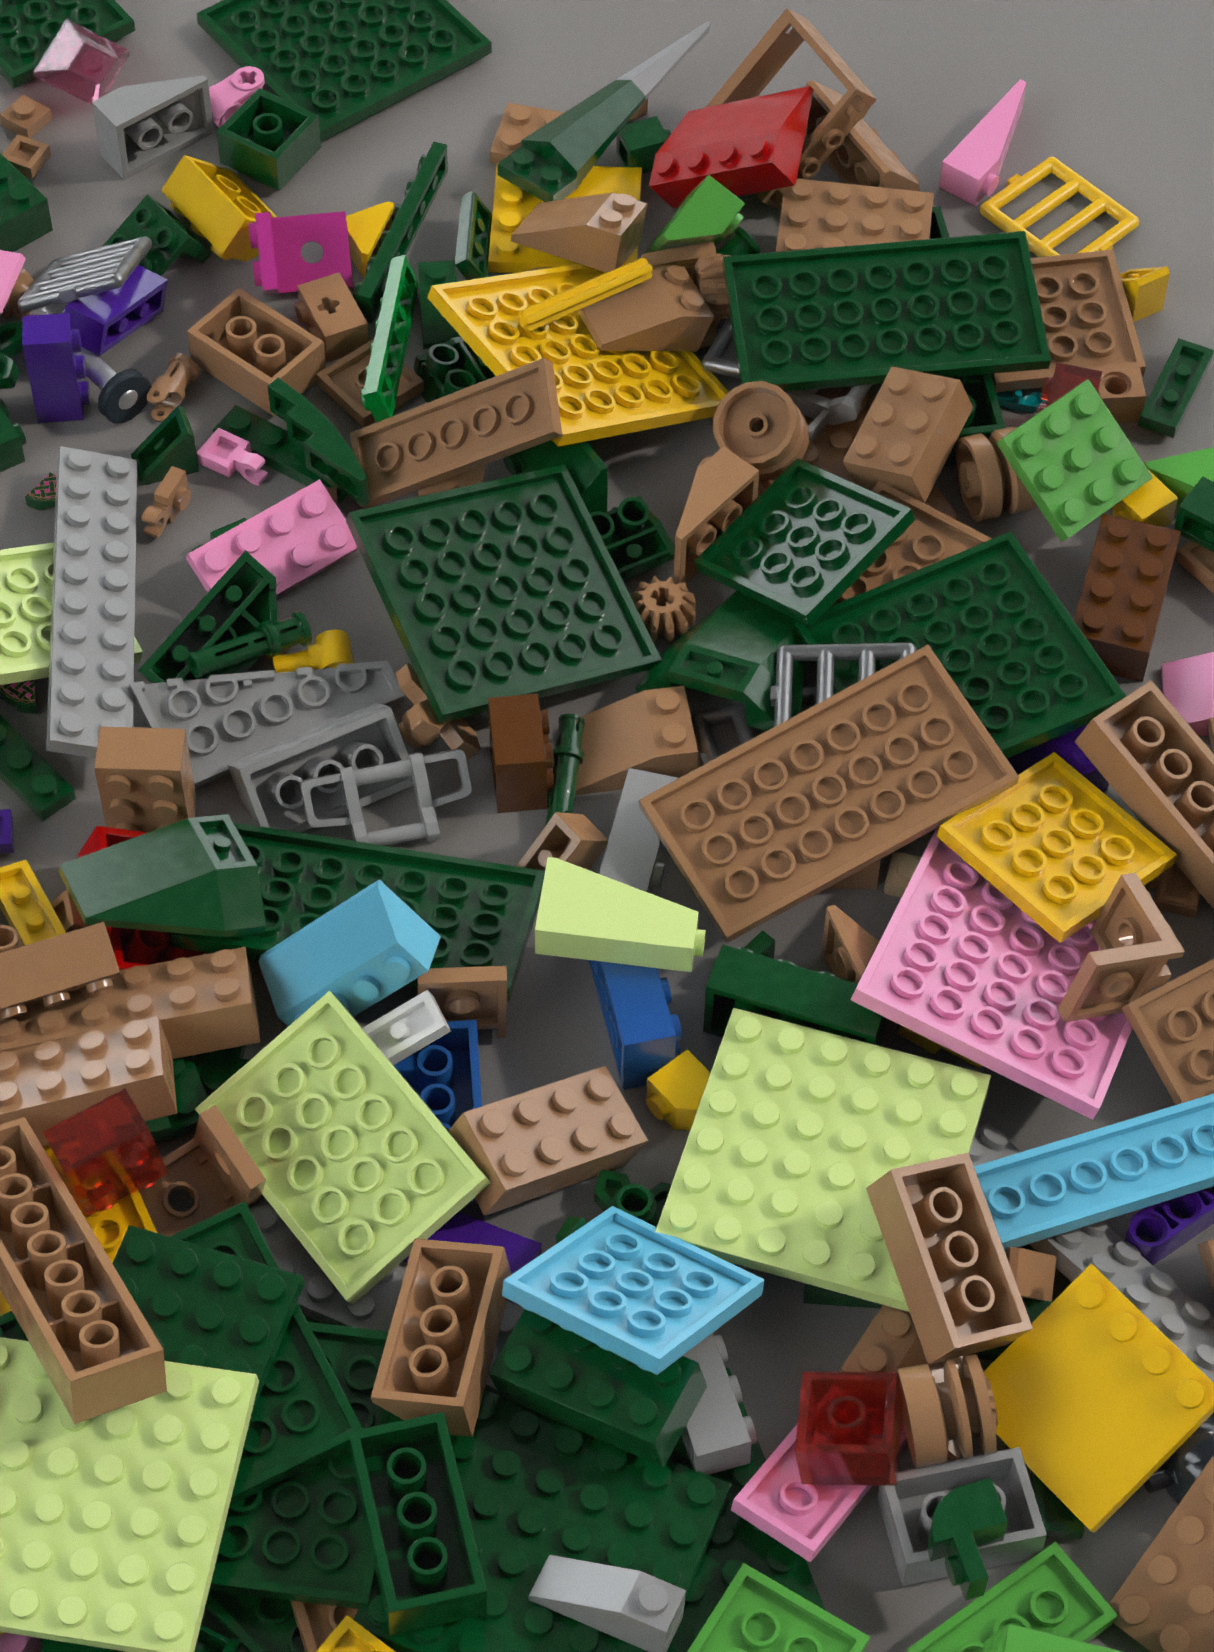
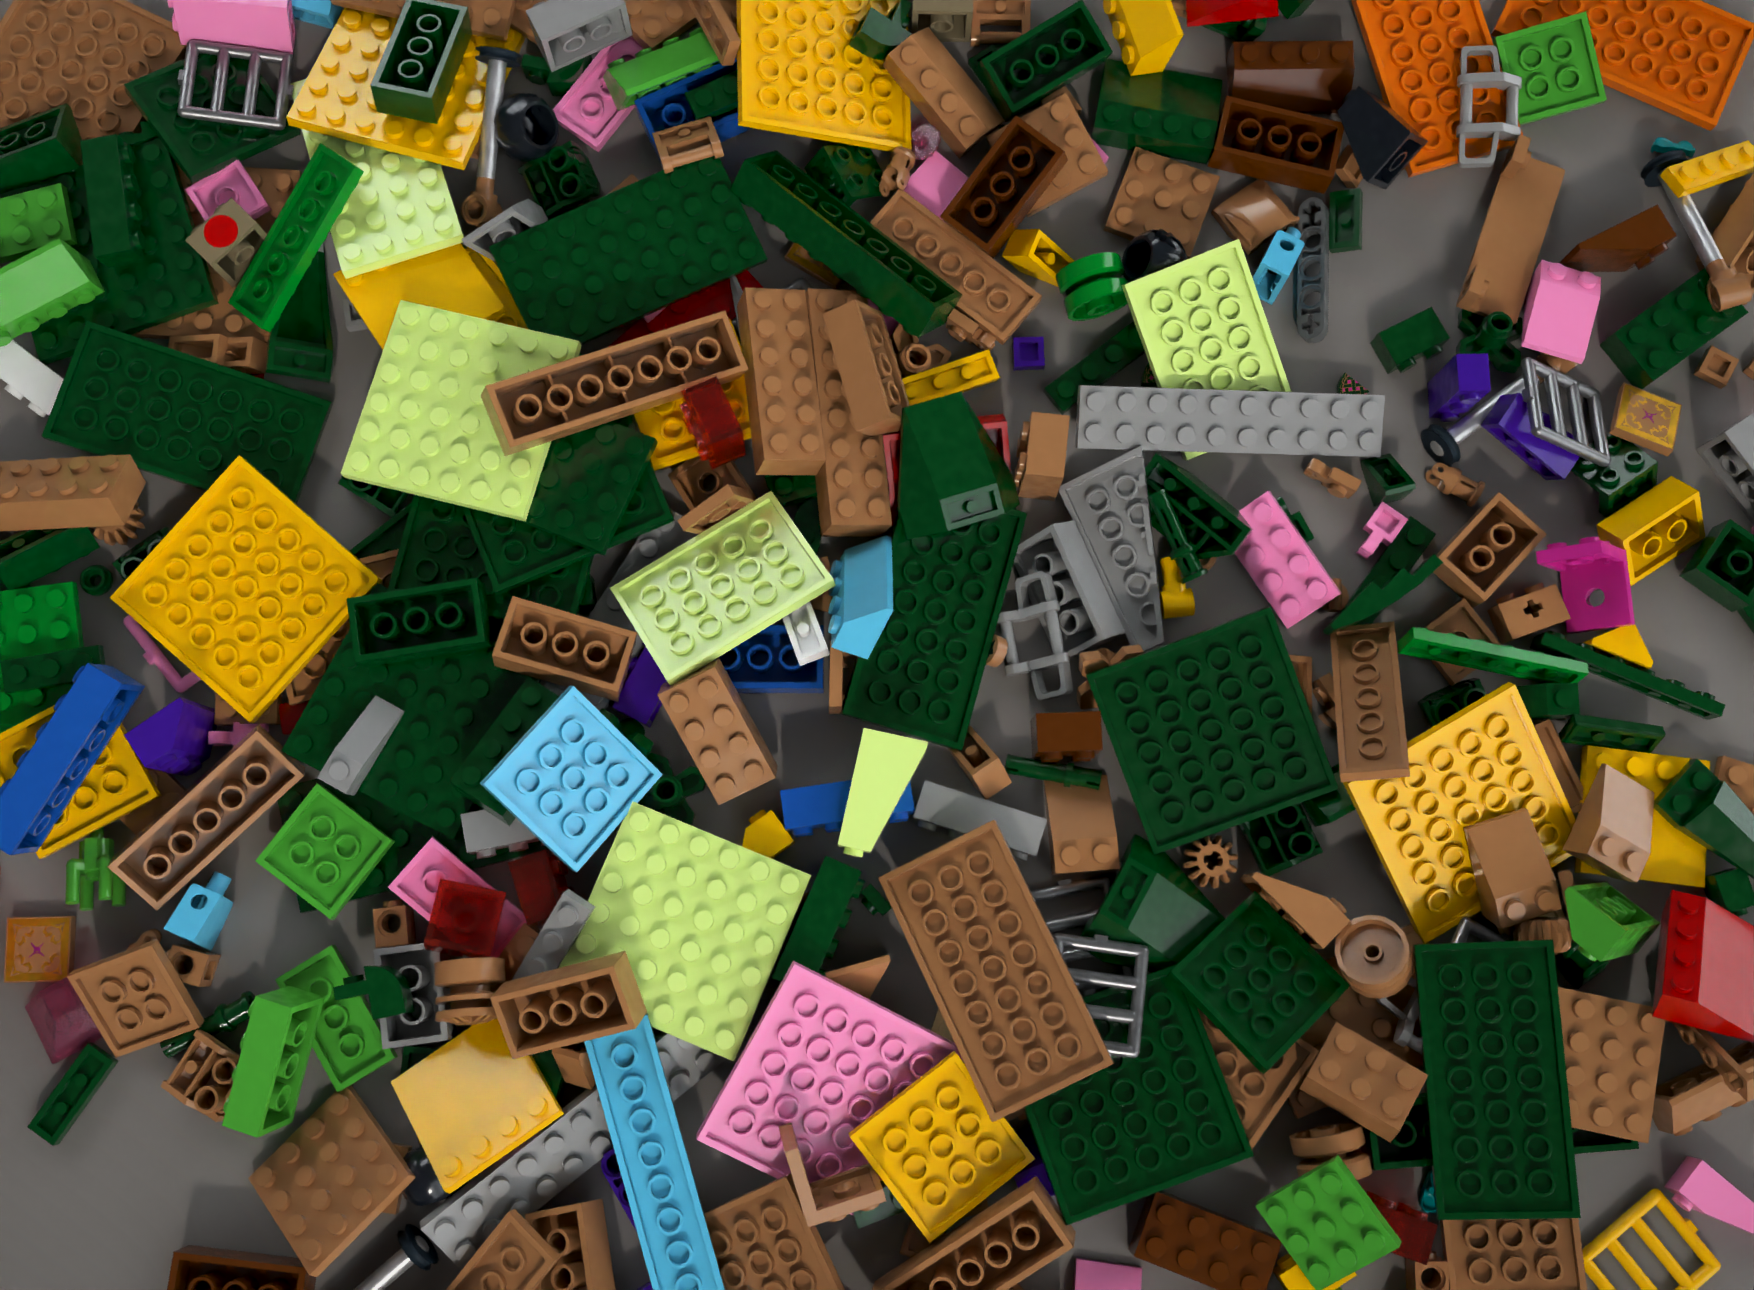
camera: 95 degrees right, 25 degrees up
(90, 215) = (1645, 419): none -> medium nougat tile
(409, 838) = (997, 651): none -> medium nougat tile
(585, 294) = (1513, 817): yellow axle -> none
(782, 1346) = (539, 884): none -> clear red brick
(862, 1306) = (556, 935): none -> light grey plate
(878, 1550) = (404, 935): none -> medium nougat brick

